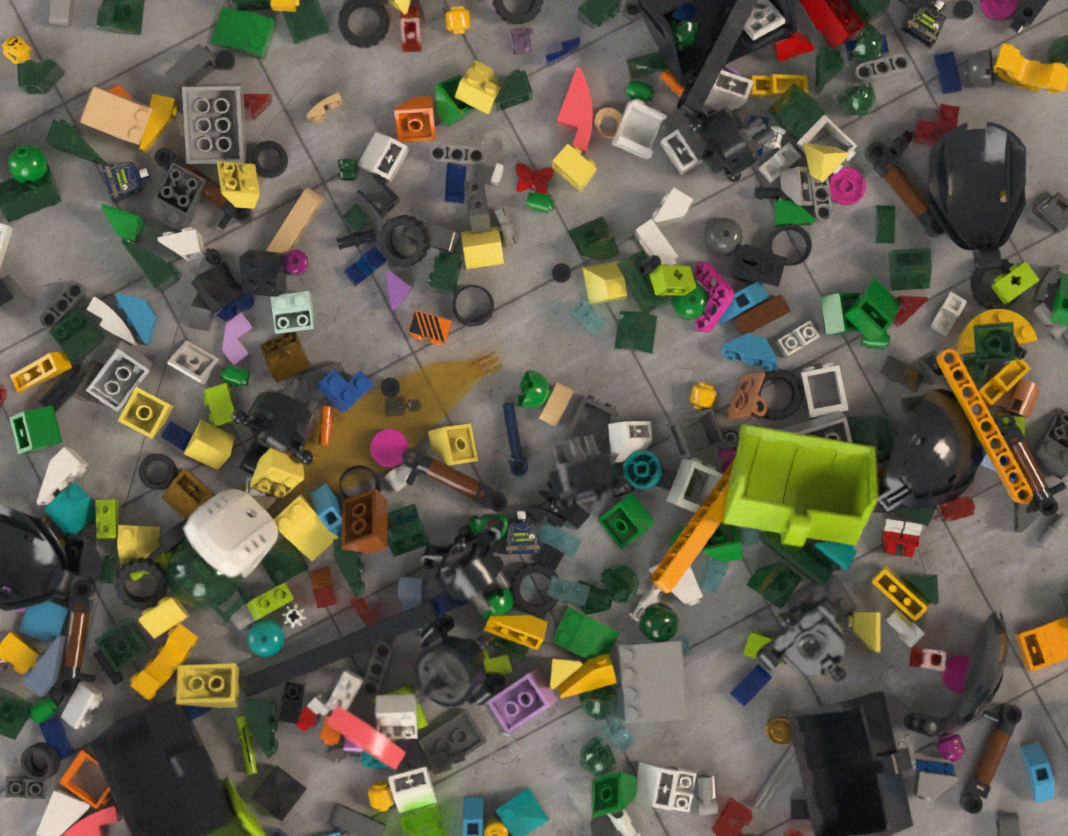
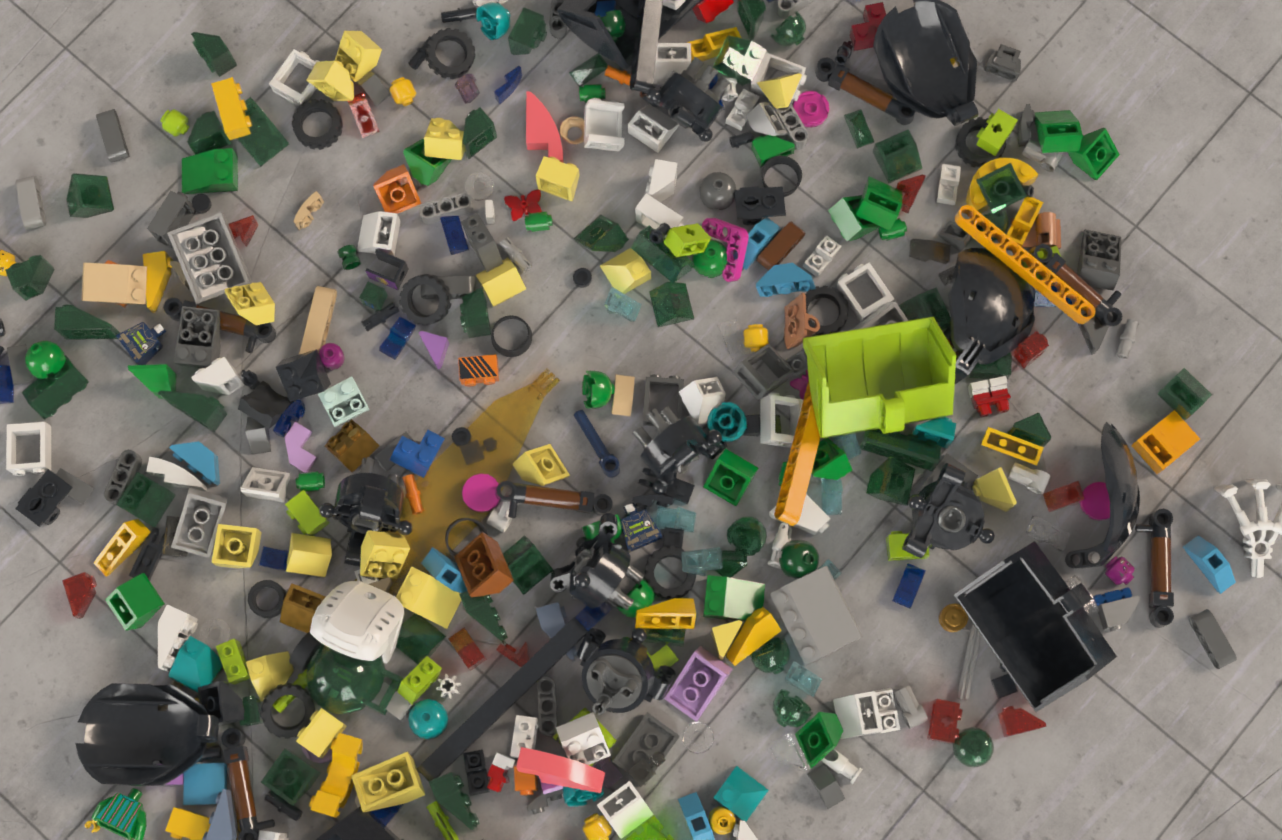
camera: 20 degrees left, 10 degrees down
(272, 145) = (269, 261): black tyre -> none

